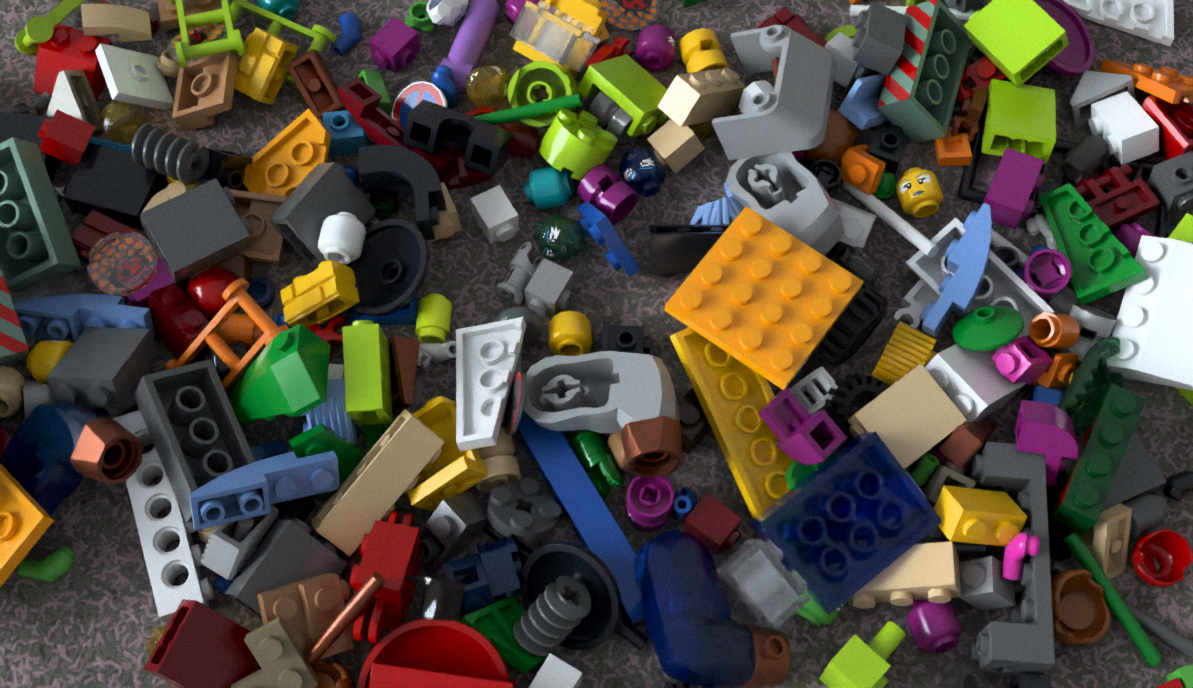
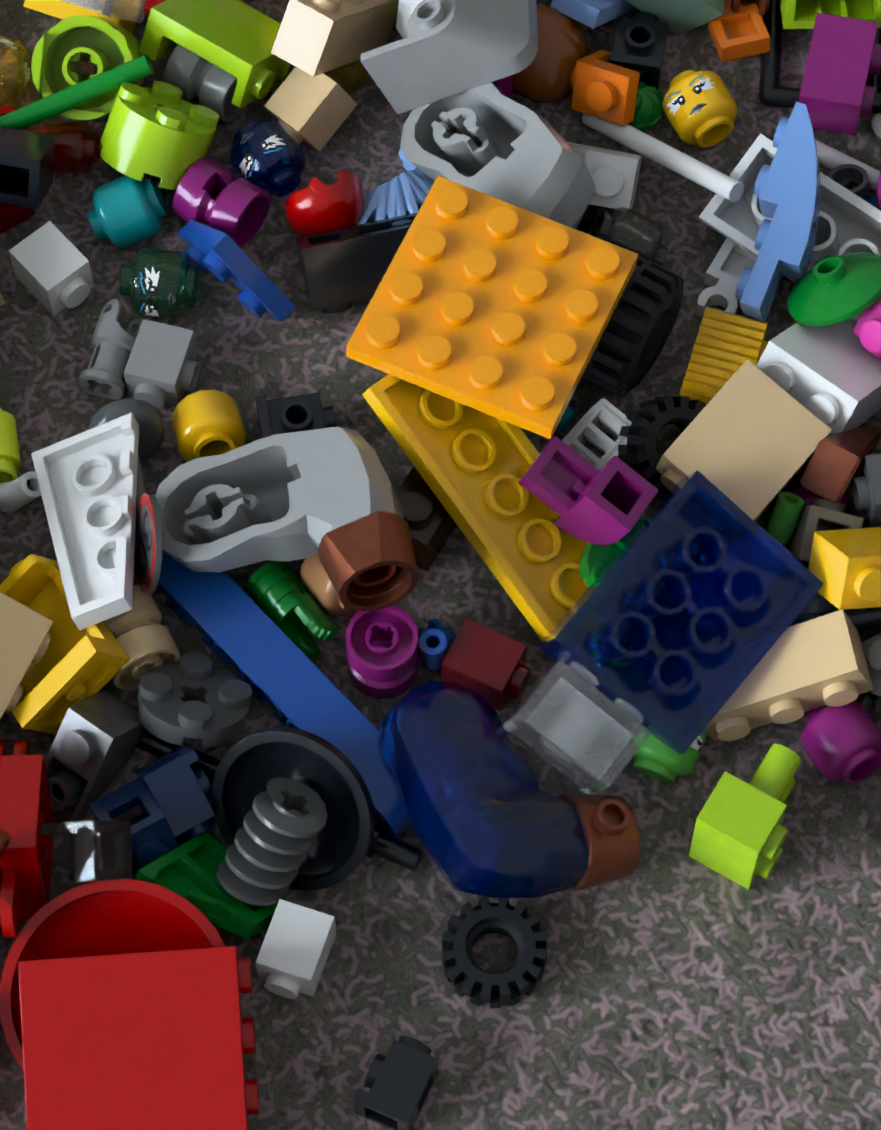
camera: 10 degrees left, 0 degrees up
(671, 209) = (326, 206): none -> red hair
(828, 173) = (556, 107): black wheel -> none

